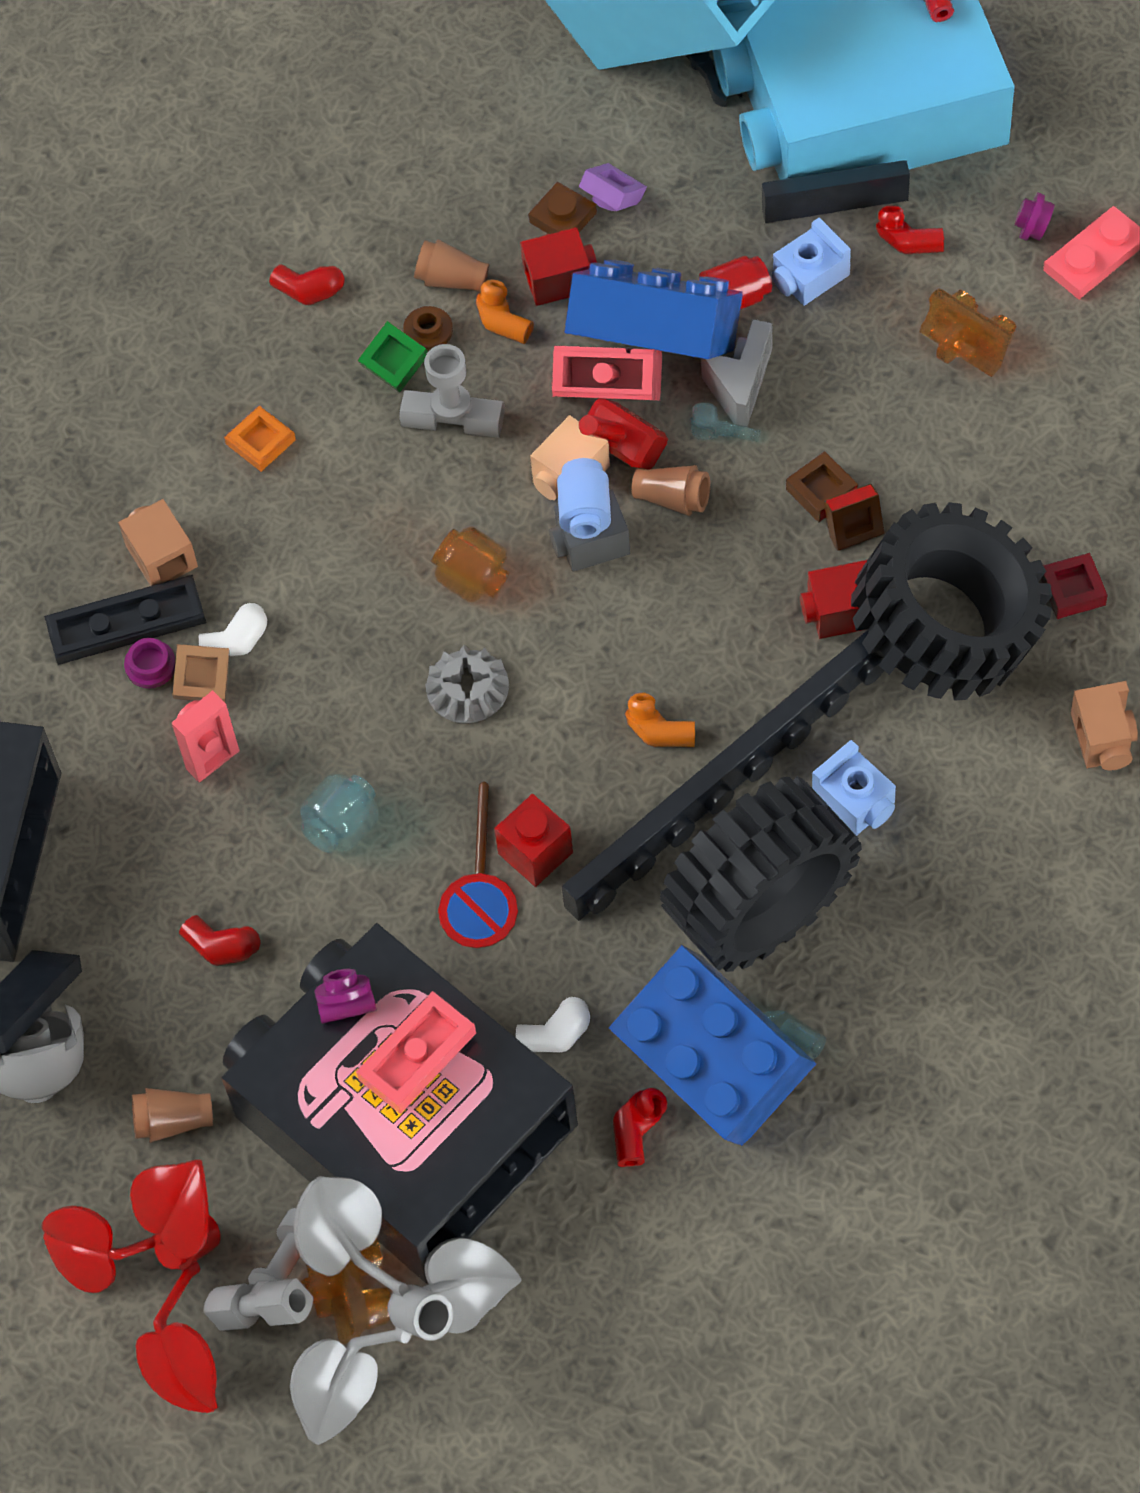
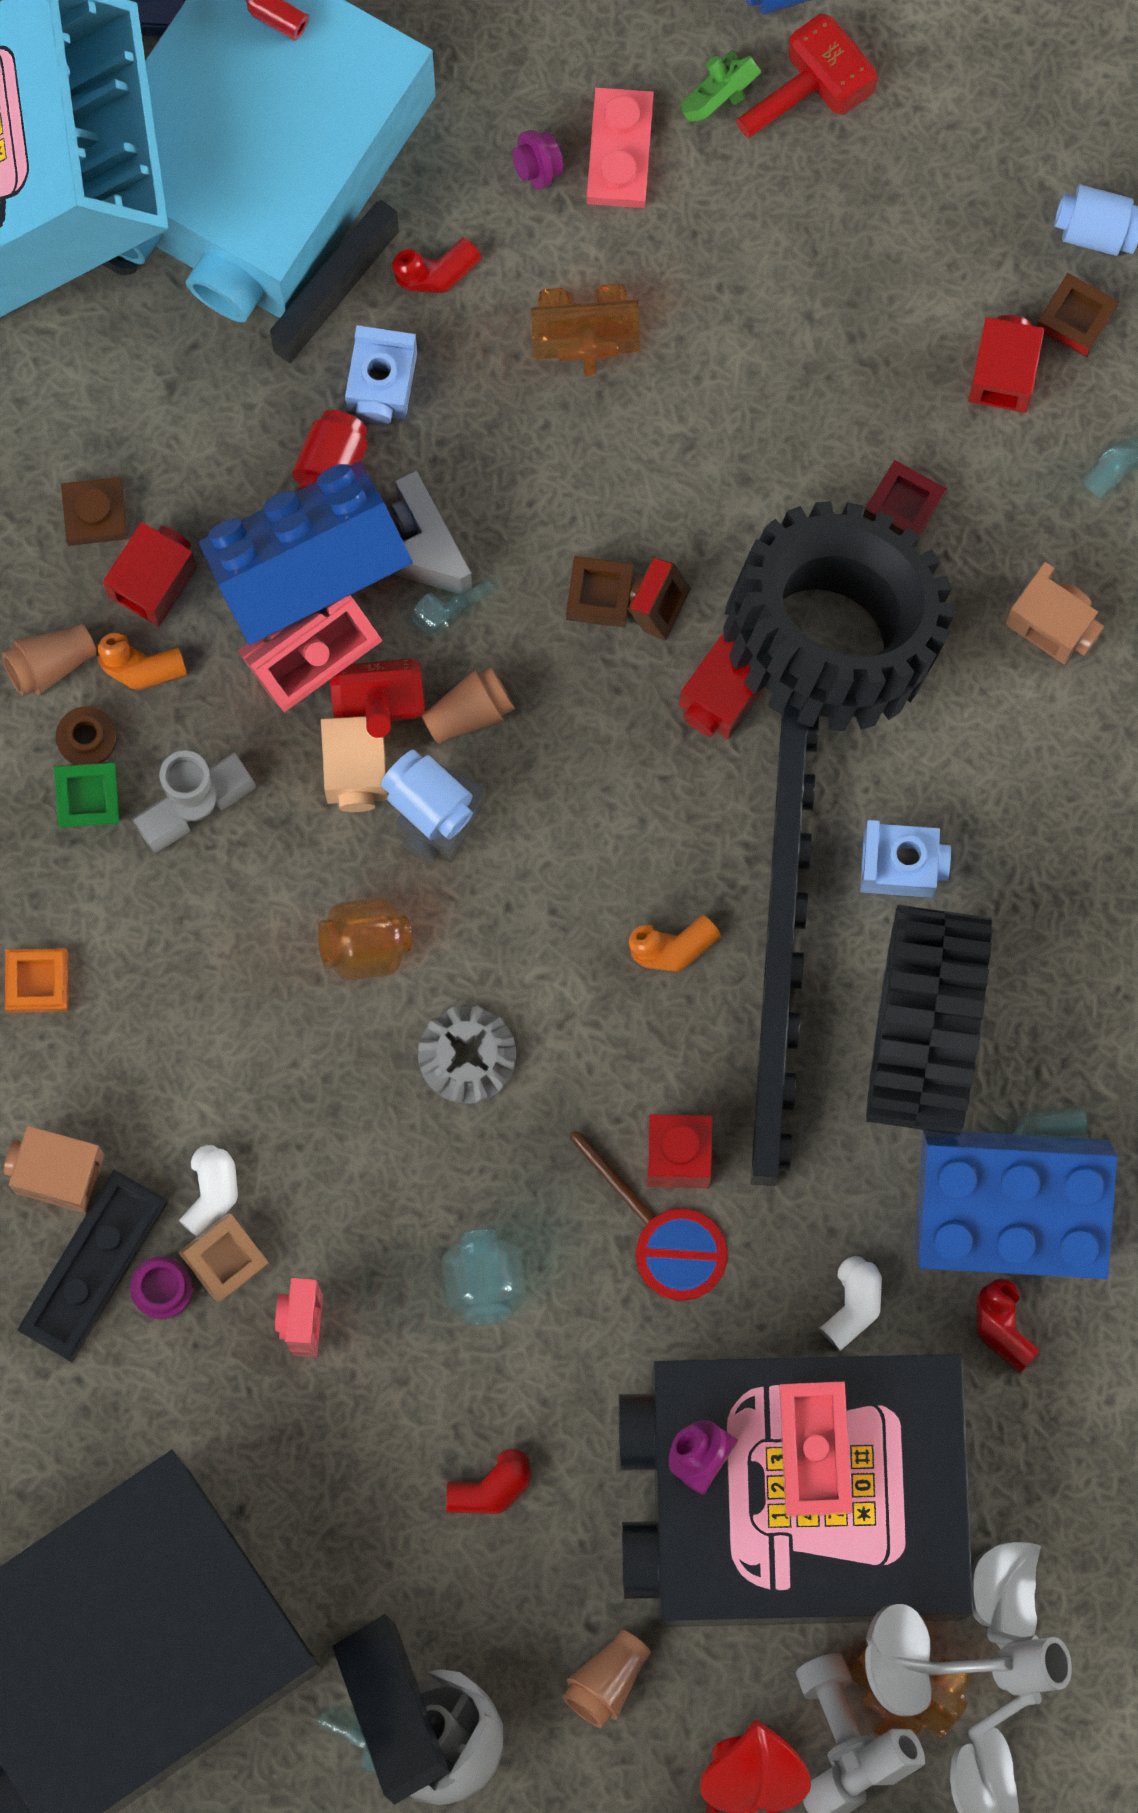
camera: 50 degrees left, 15 degrees up
(612, 187) = (121, 447): medium lavender plate -> none

